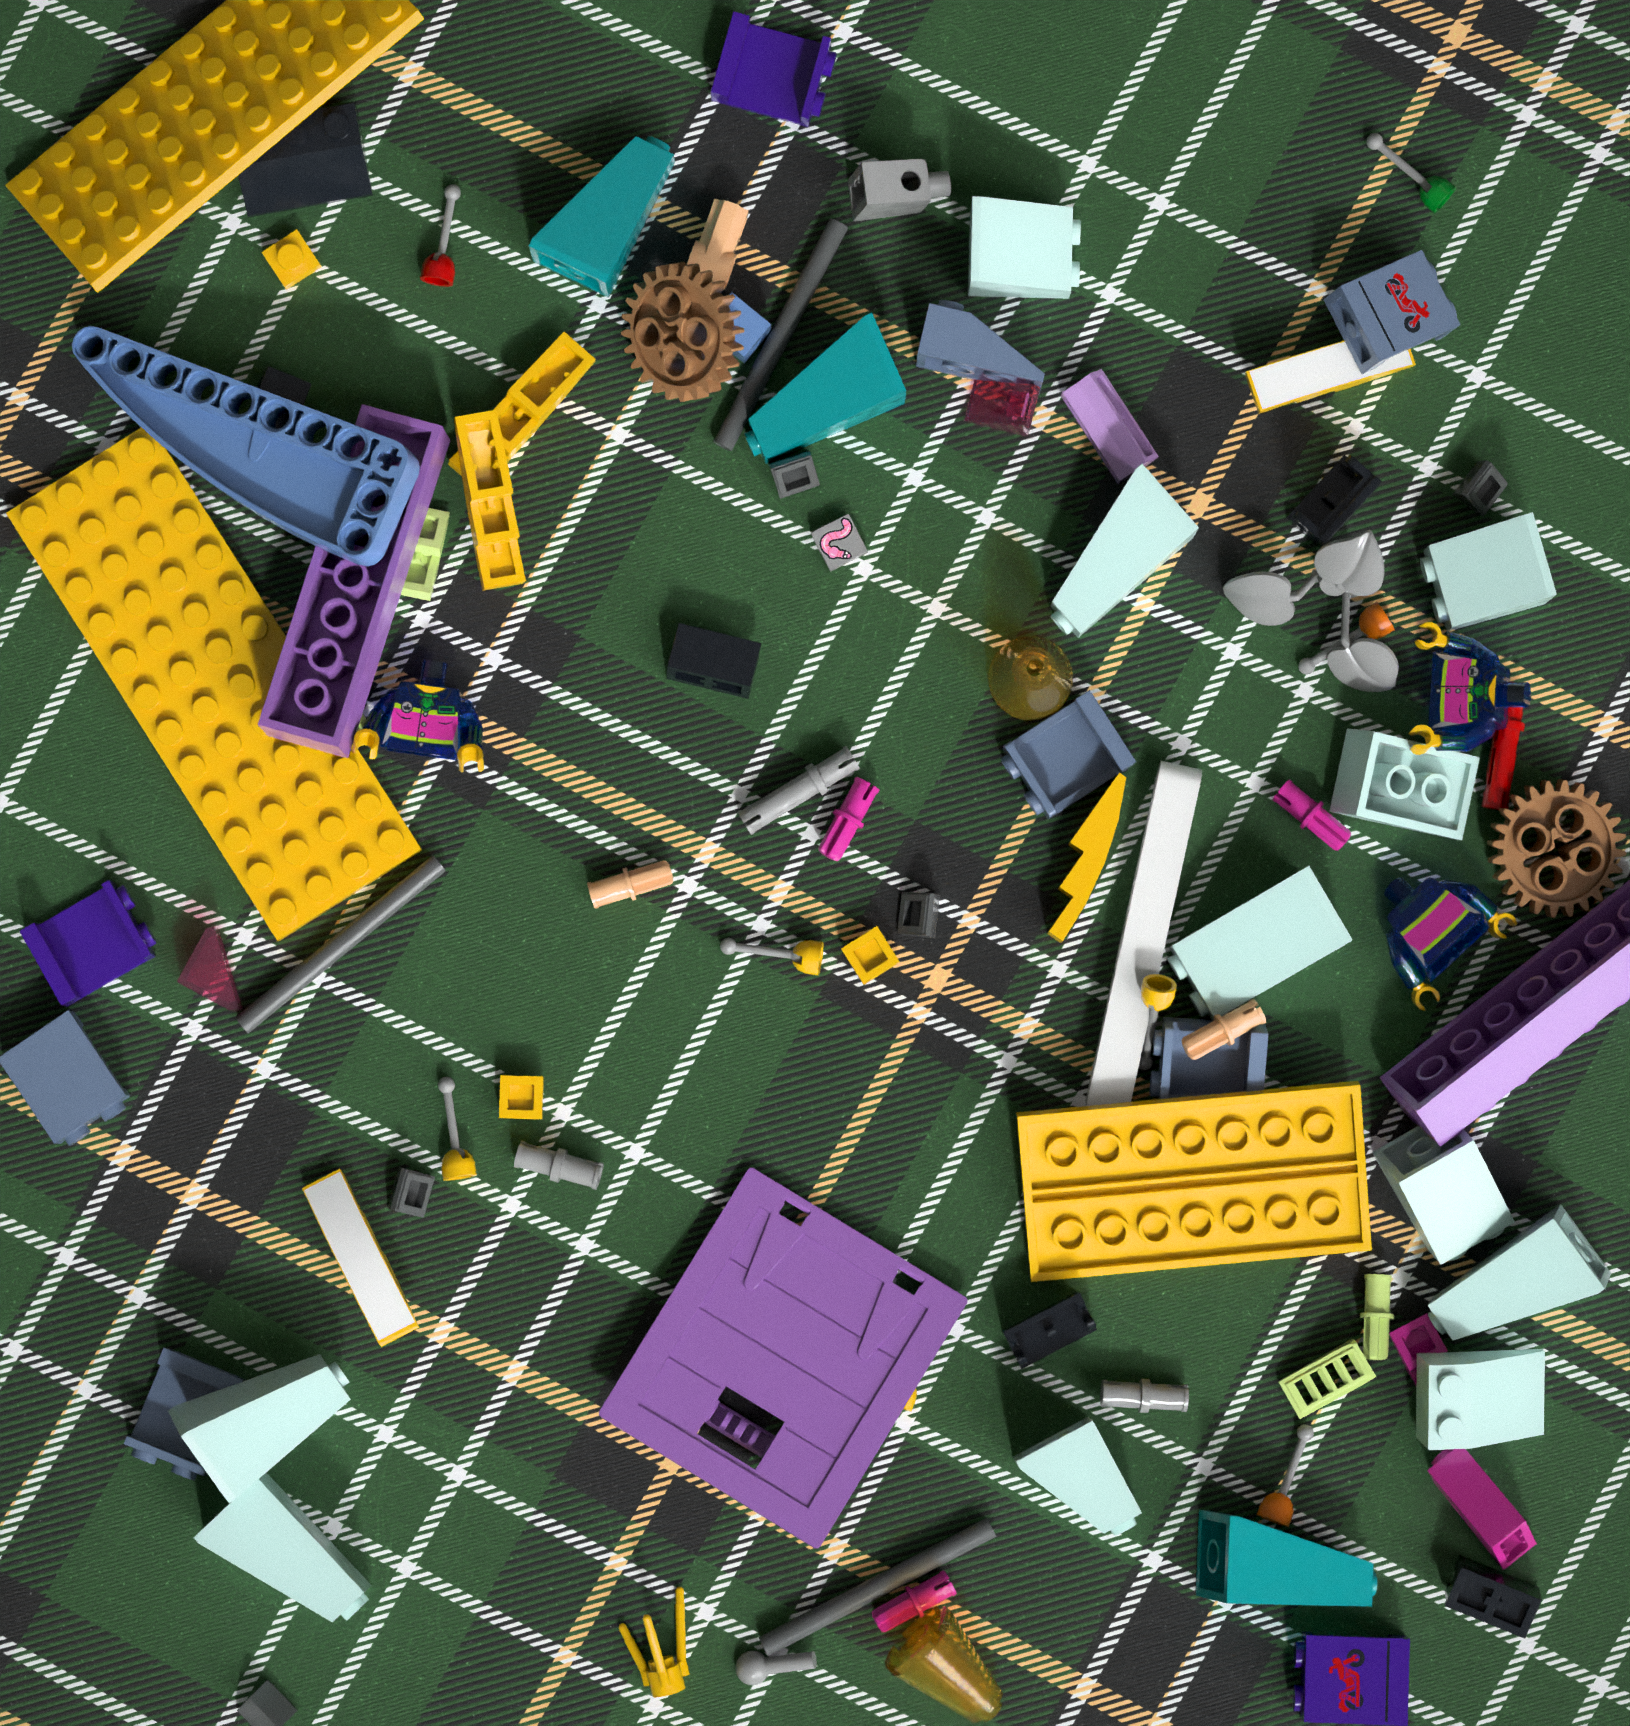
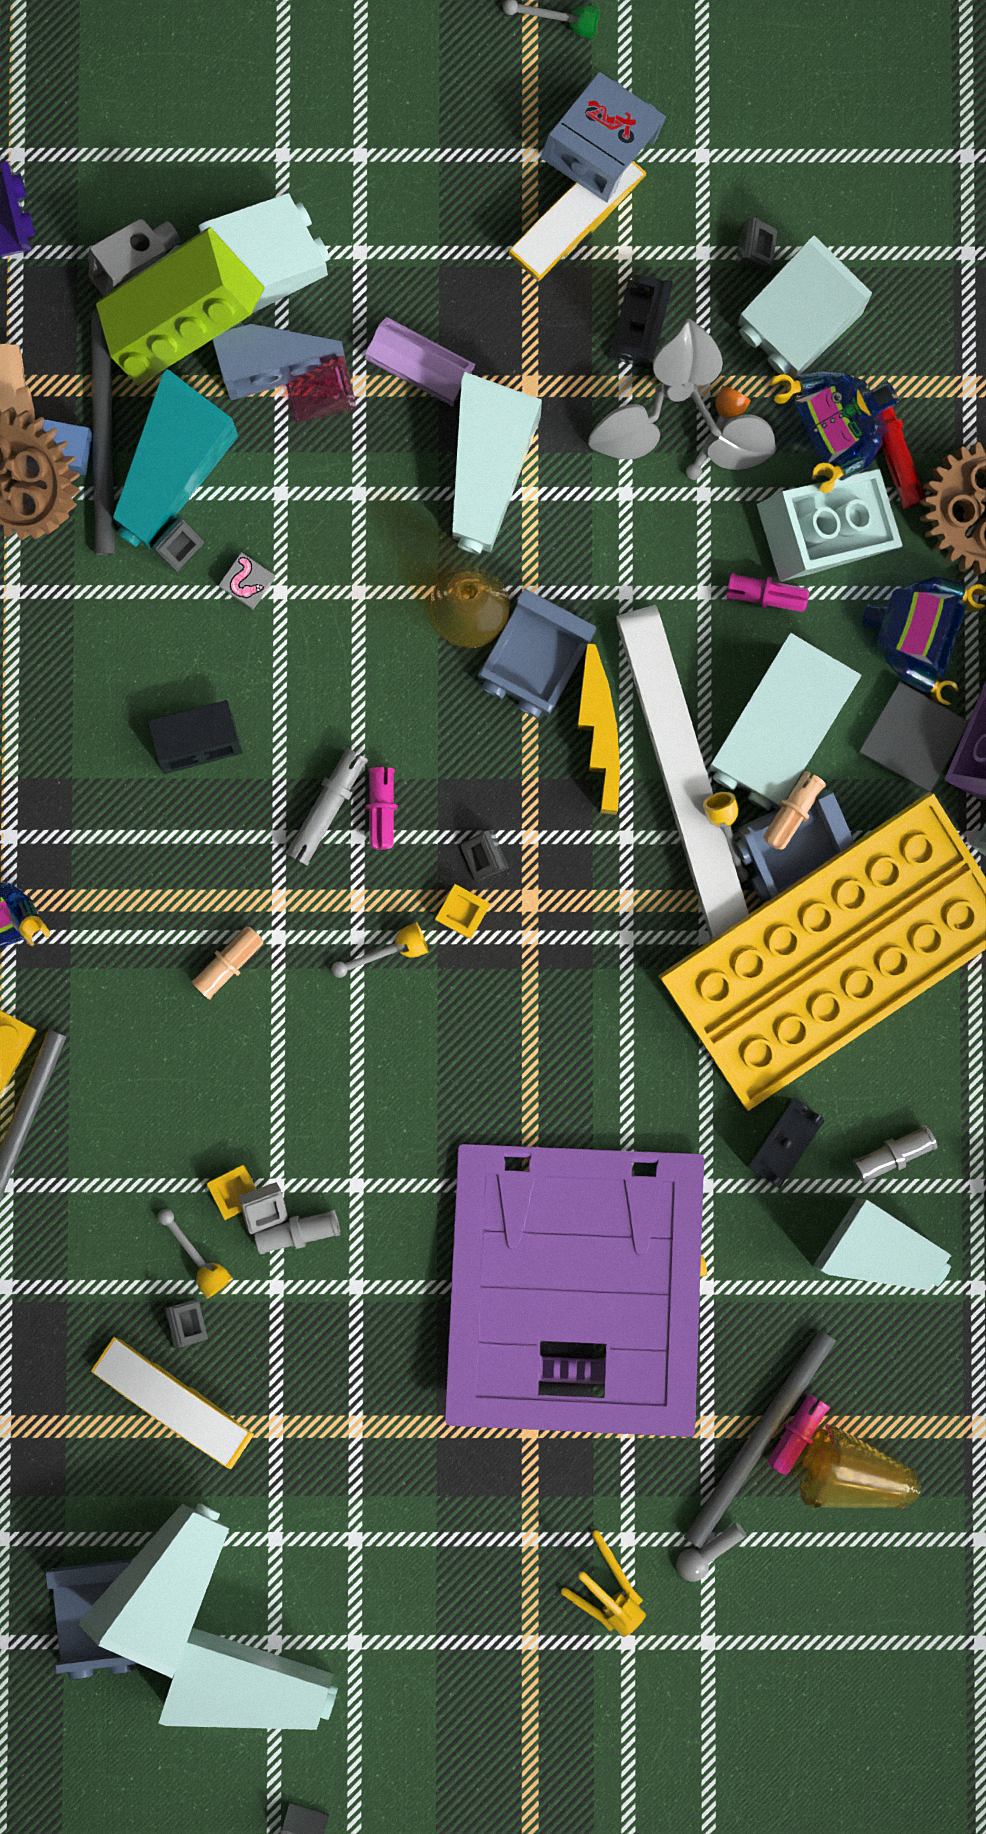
camera: 30 degrees left, 0 degrees up
(539, 1126) = (263, 1208): none -> light grey tile
(912, 260) = (177, 305): none -> lime slope
(1374, 1023) = (914, 737): none -> dark grey tile

